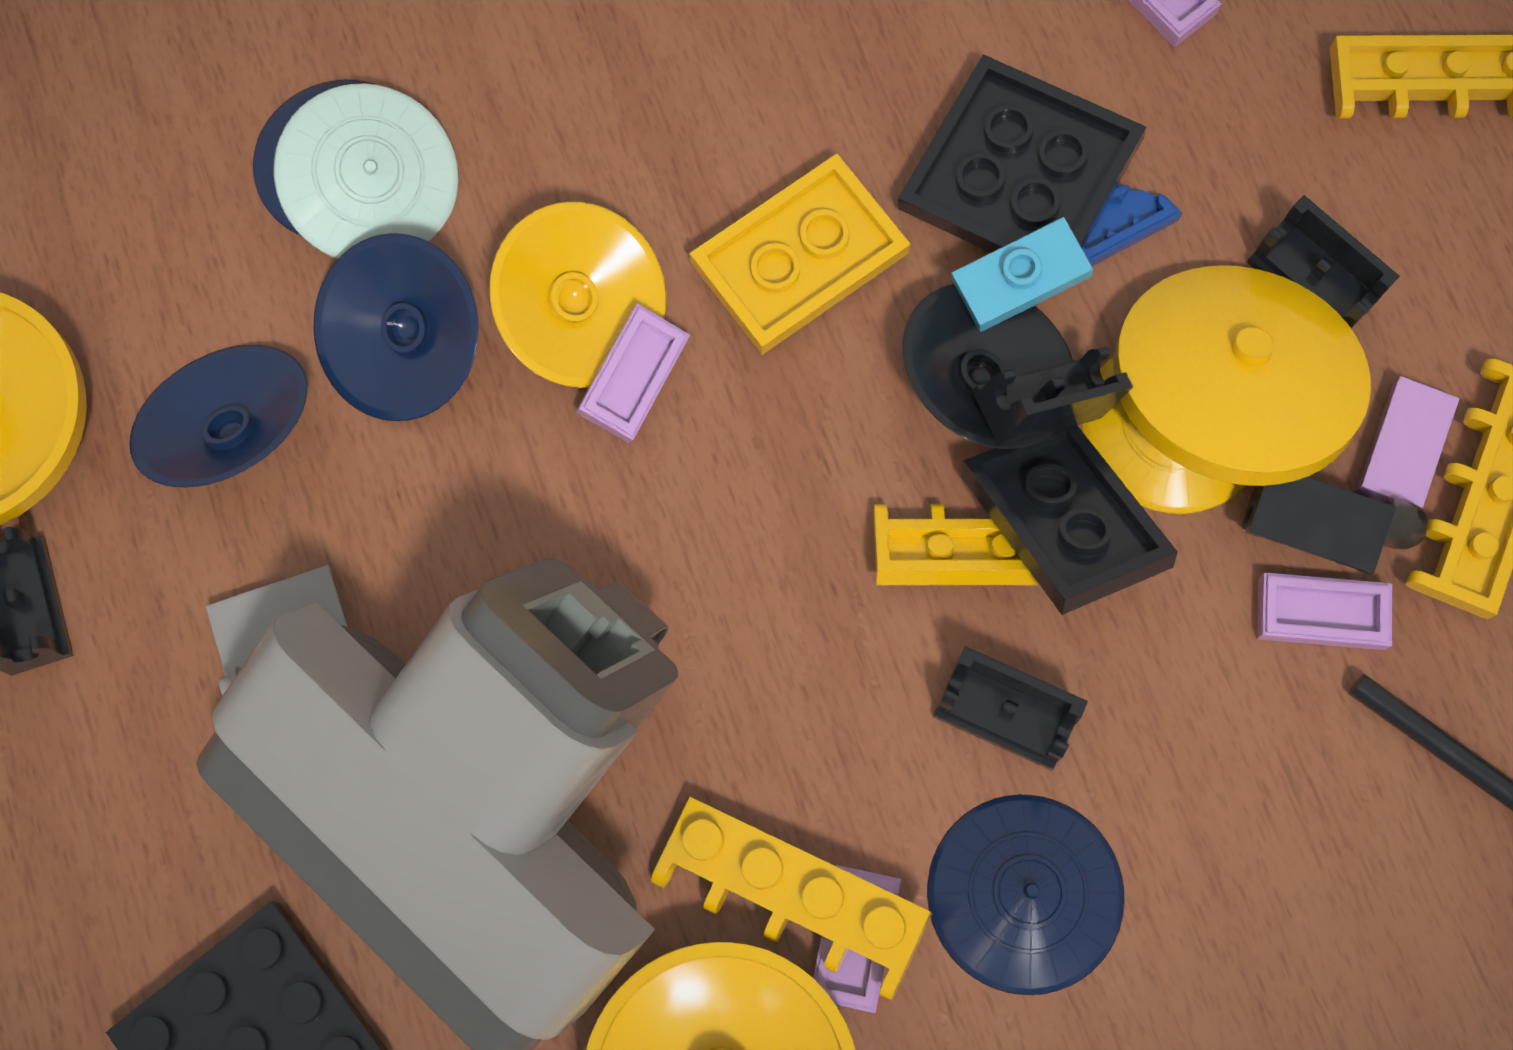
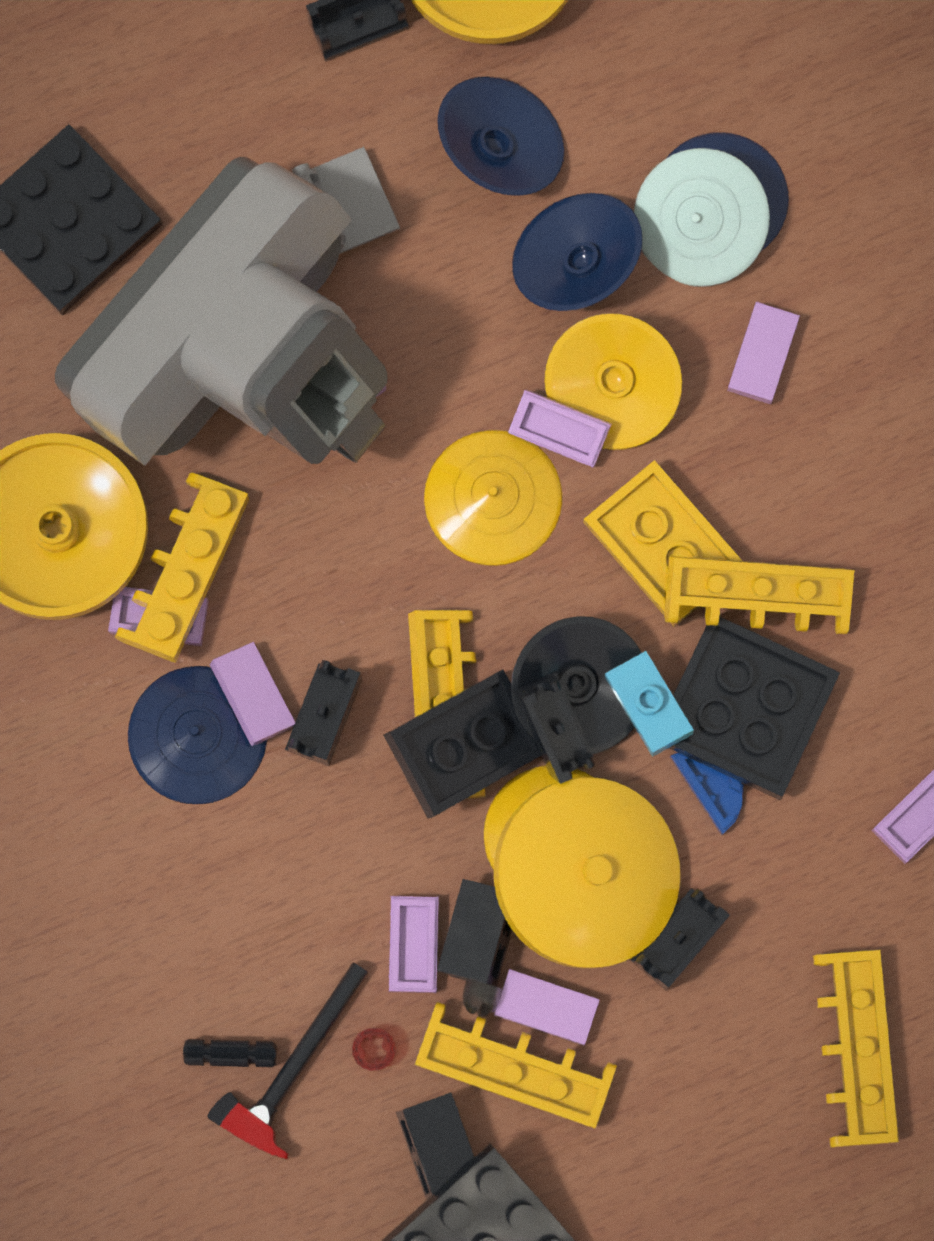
camera: 90 degrees right, 5 degrees up
(556, 119) = (763, 353): none -> lavender tile
(717, 472) = (493, 498): none -> yellow hat
(873, 138) = (759, 589): none -> yellow hinge
(976, 808) = (252, 694): none -> lavender tile
(1480, 870) = (229, 1053): none -> black axle
(1489, 668) = (359, 1053): none -> clear red bush

